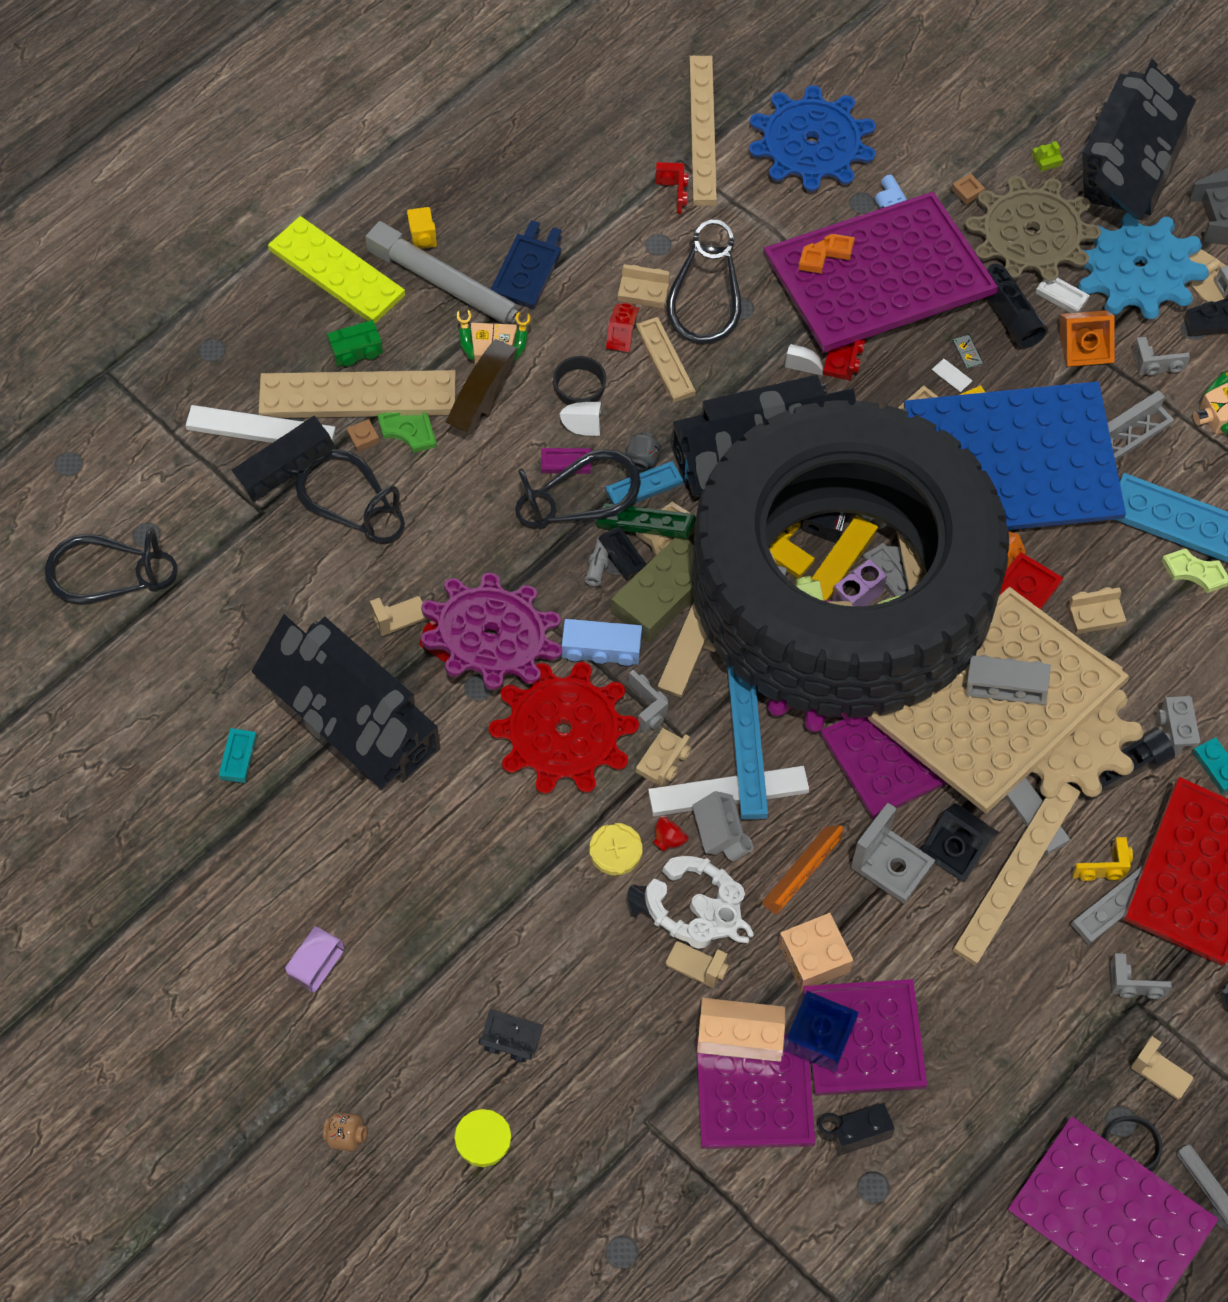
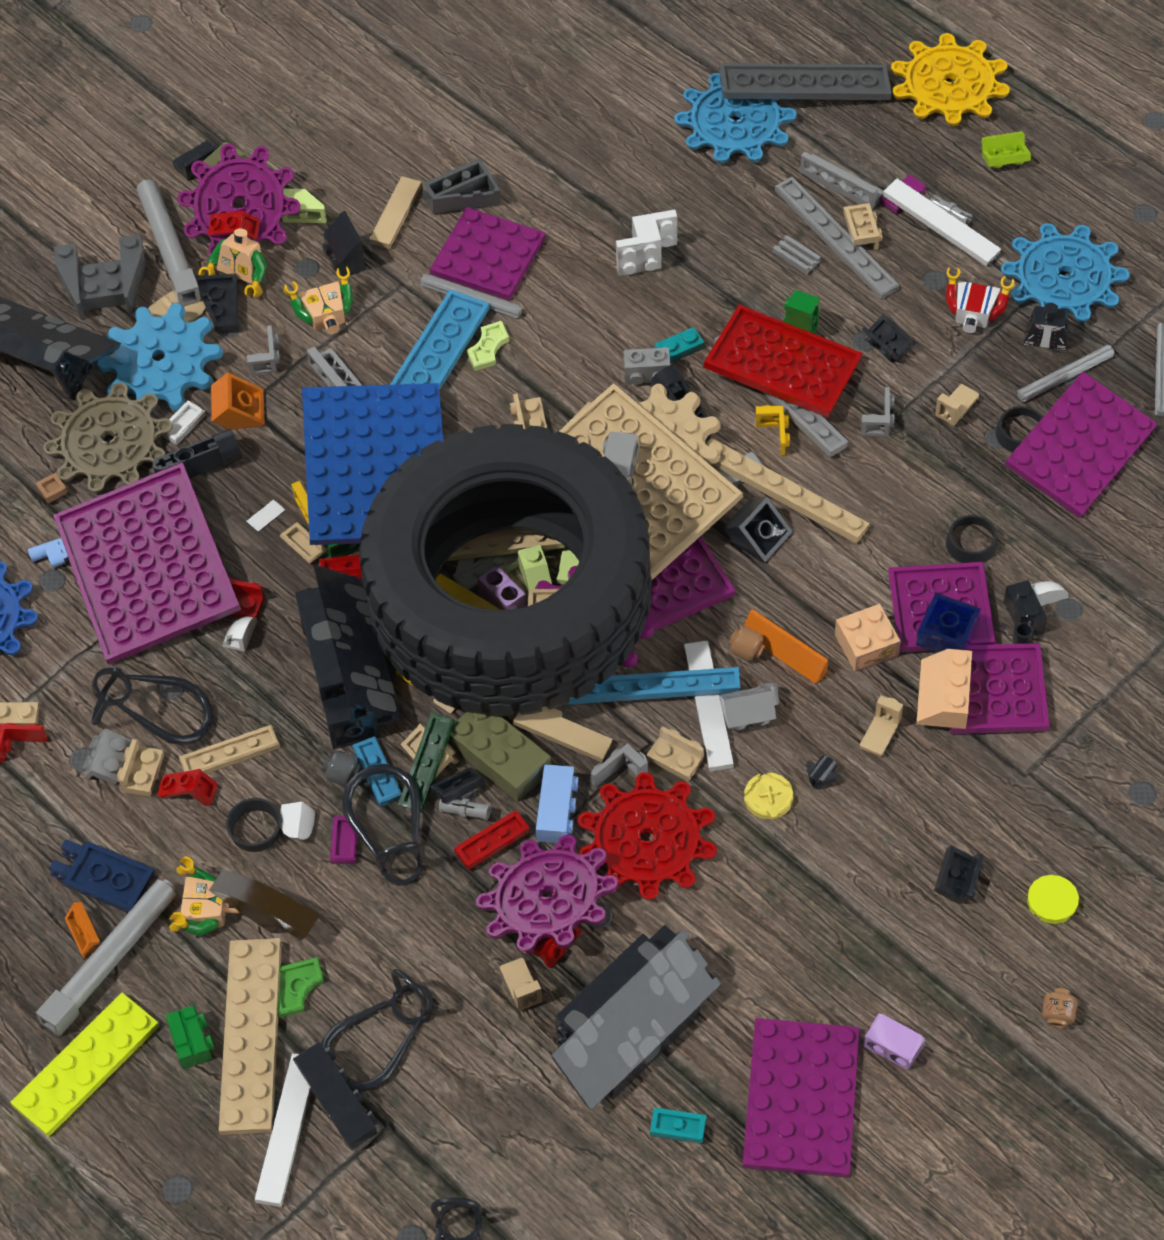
camera: 85 degrees left, 5 degrees down
(263, 872) = (801, 1098): none -> magenta plate
(362, 435) = (302, 1028): medium nougat plate -> none
(422, 228) = (42, 978): yellow bracket -> none
(469, 252) = (82, 929): none -> orange tile
(561, 586) = (492, 840): none -> red plate
(657, 257) = (106, 756): none -> light grey bracket
(669, 834) = (756, 749): red brick -> none
(708, 910) = (833, 712): white piece -> none
(803, 826) = (746, 643): none -> medium nougat head
(833, 245) = (115, 599): orange tile -> none
(882, 847) = (776, 578): light grey bracket -> none
(892, 1158) = (1049, 592): none -> white brick
(952, 1101) = (967, 556): none -> black tyre
(967, 351) = (239, 501): light grey sticker -> none
(1047, 156) = (18, 423): lime tile -> none

